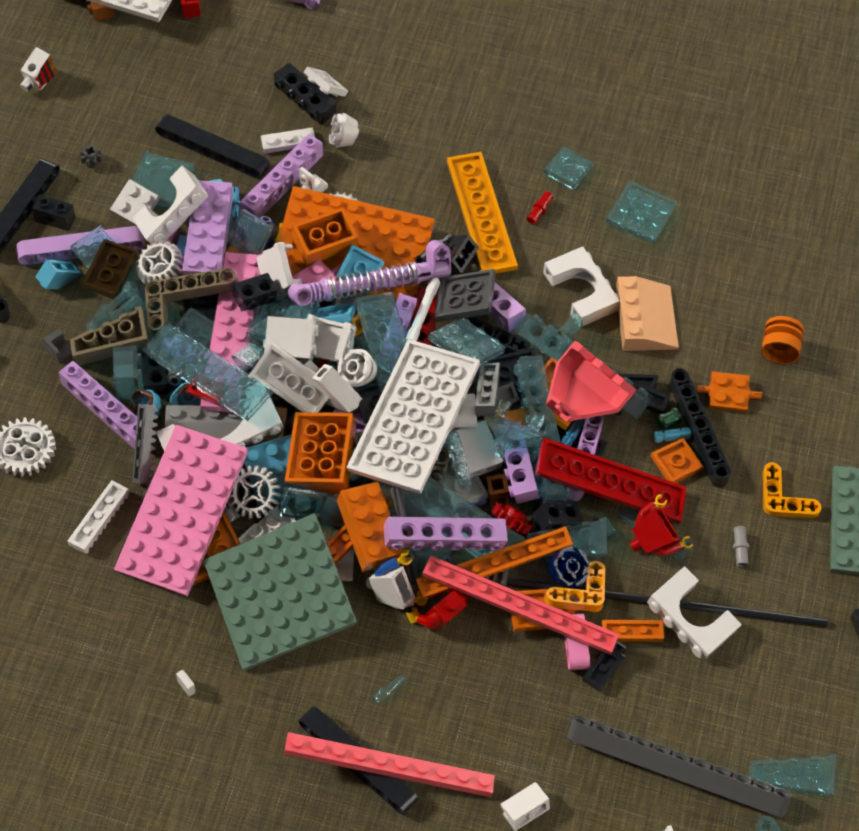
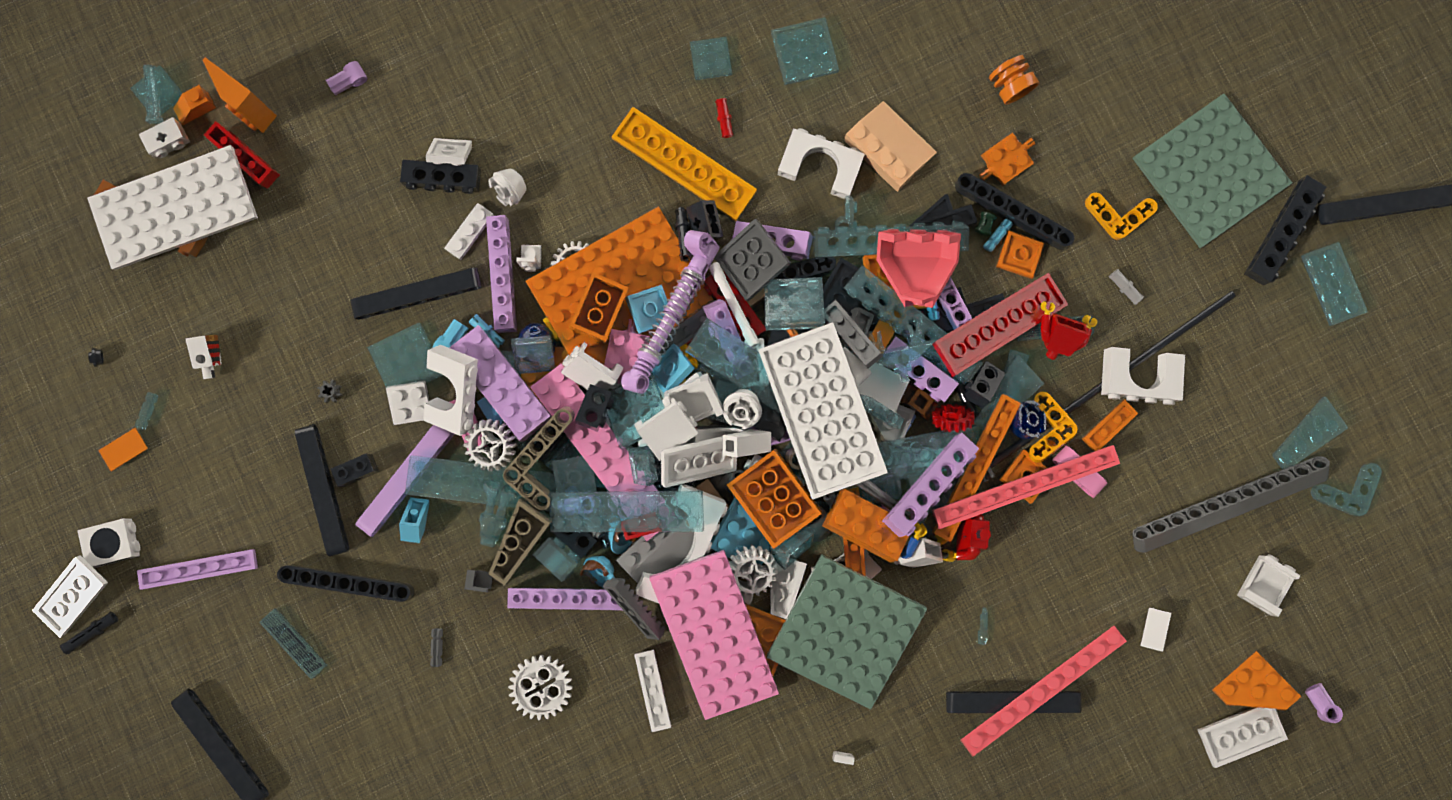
camera: 40 degrees left, 25 degrees up
(109, 269) = (456, 485): dark brown tile -> none
(605, 667) = (1116, 475): black hinge -> none

